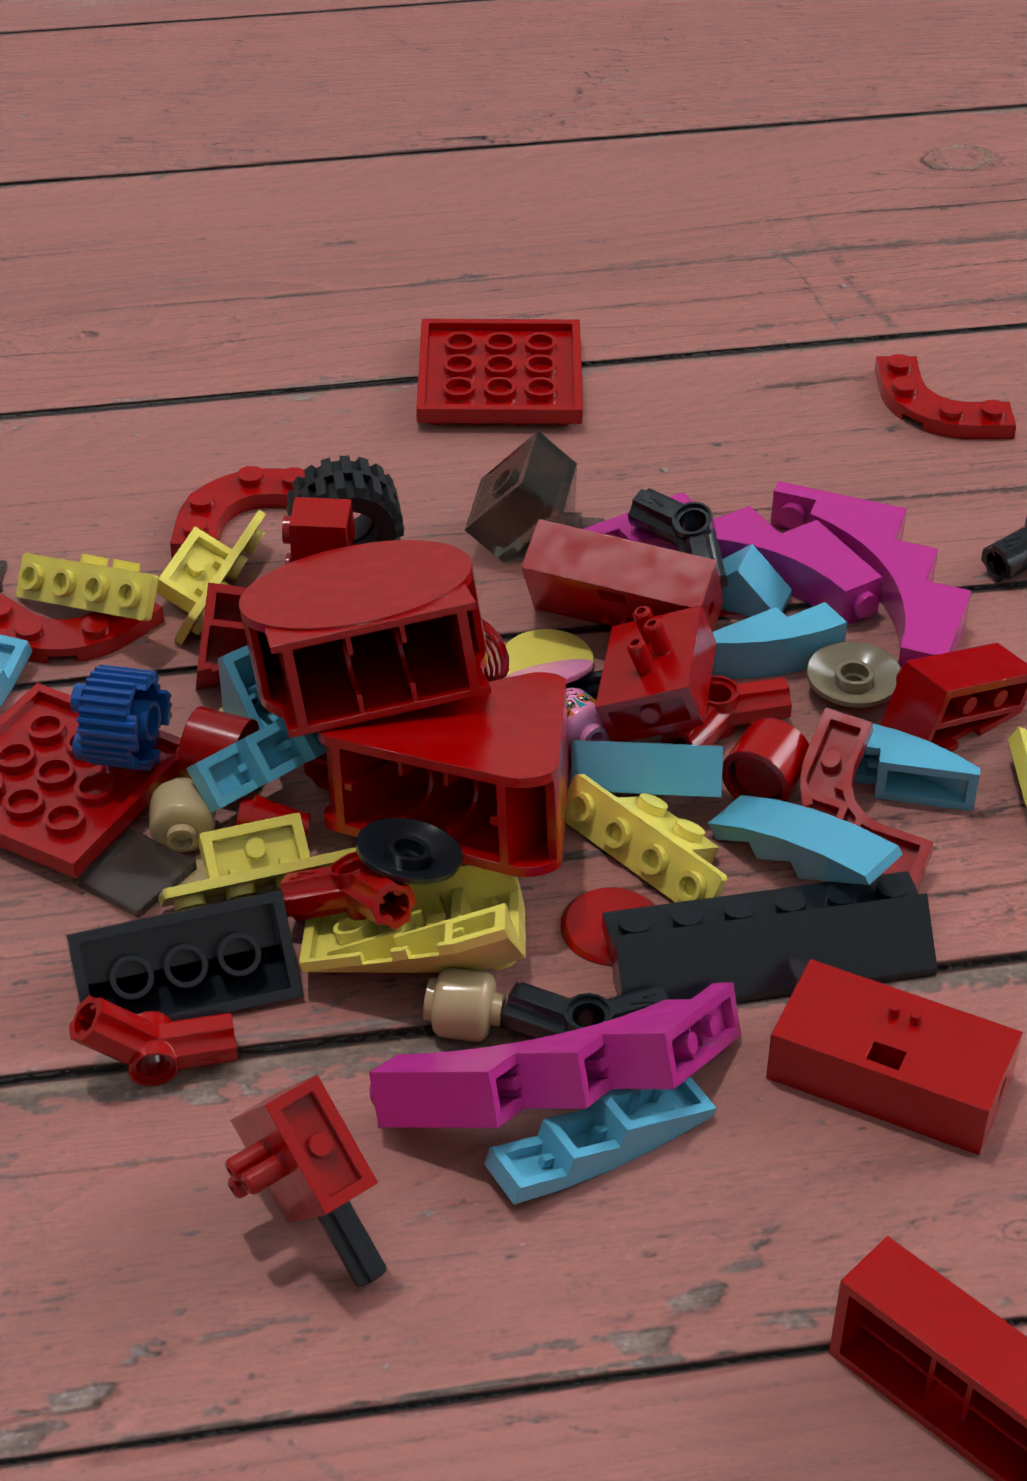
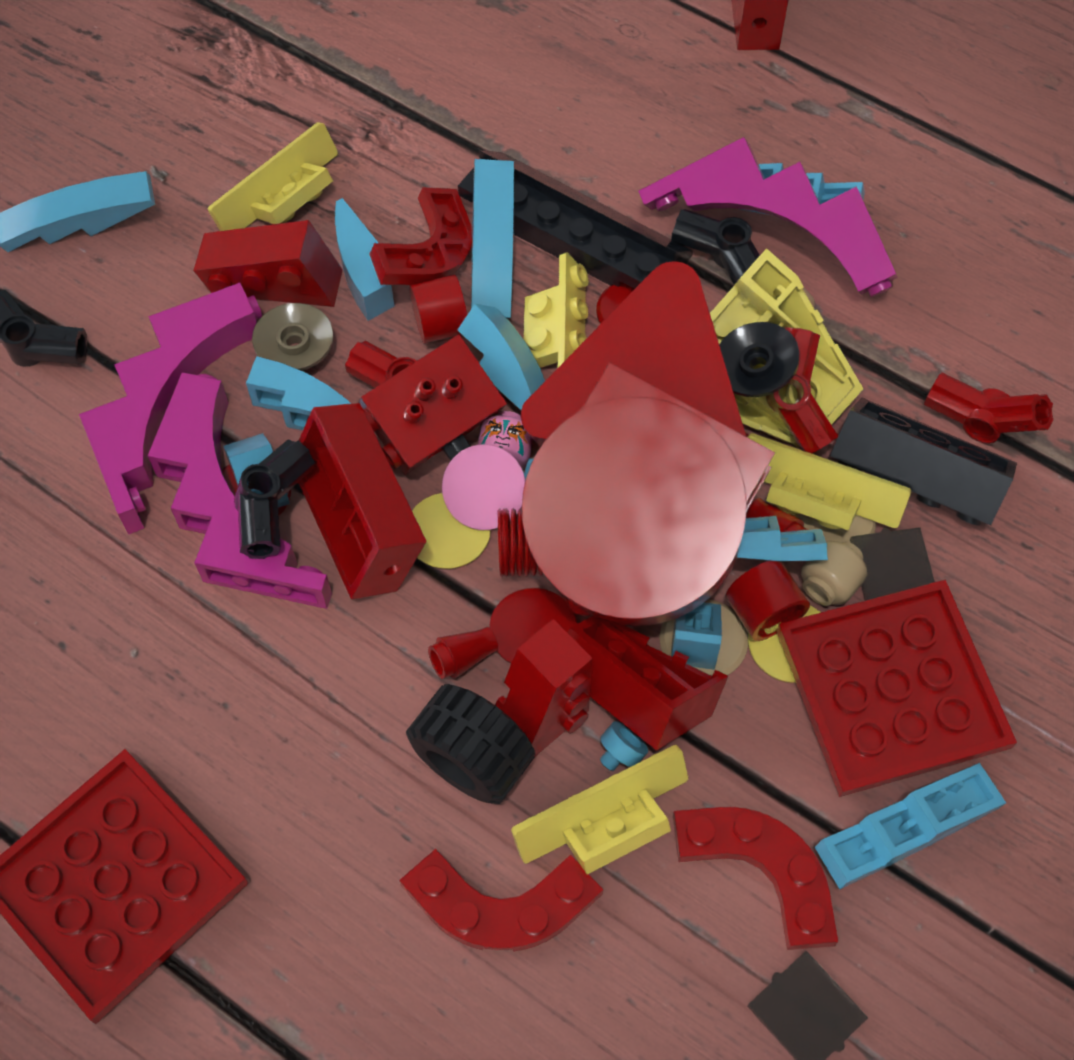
camera: 135 degrees left, 20 degrees up
(89, 585) = (717, 863): light yellow bracket -> none
(120, 717) = (841, 636): blue brick -> none
(310, 1167) = (988, 237): red piece -> none
(525, 487) = (316, 649): clear smoke piece -> none
(893, 1055) = (597, 115): red brick -> none

